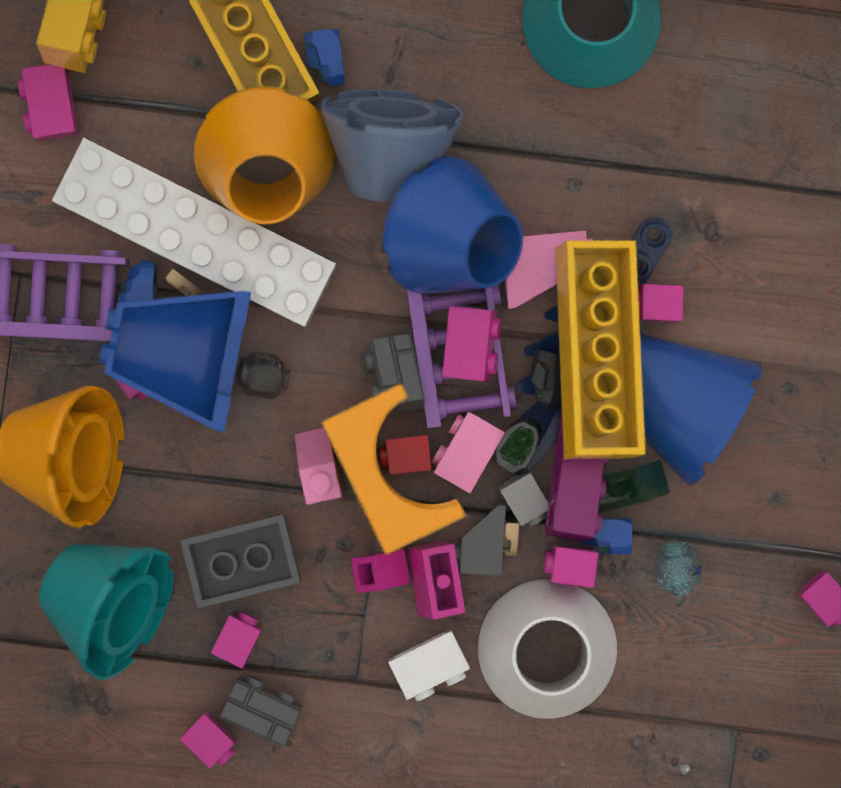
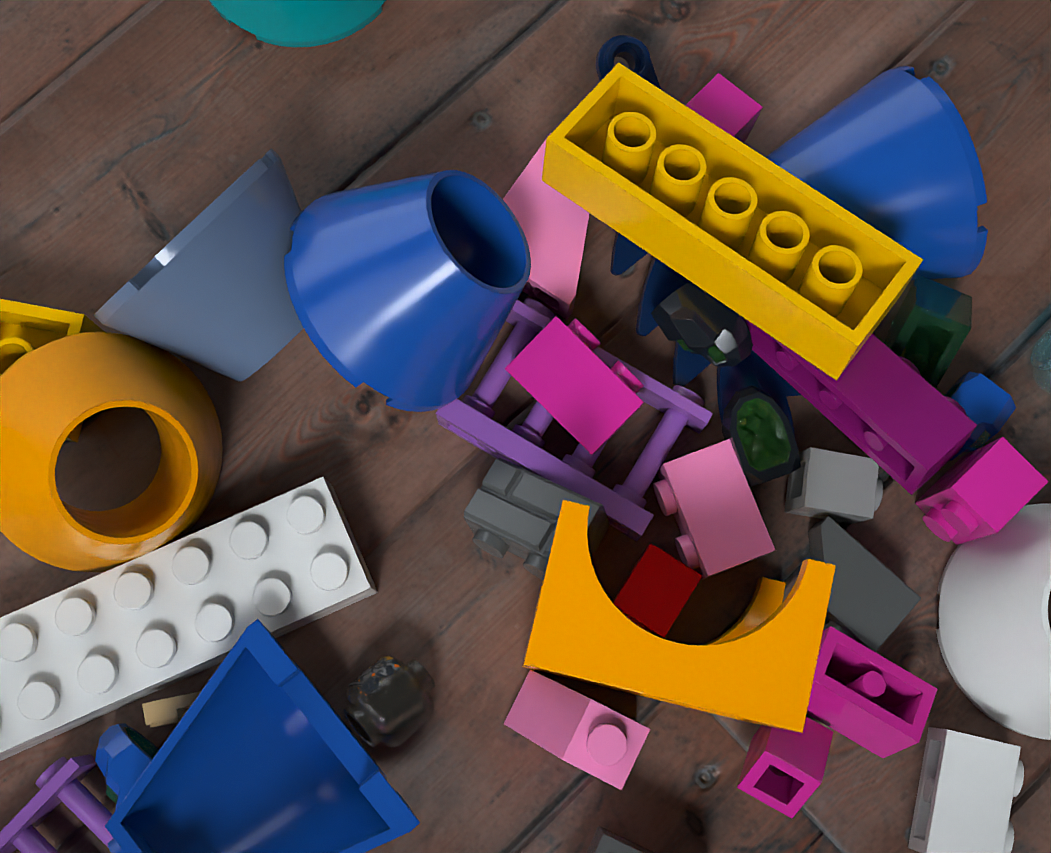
camera: 55 degrees left, 10 degrees down
(325, 56) = (54, 277): blue rock -> none
(511, 534) = (875, 542): tan tile -> none

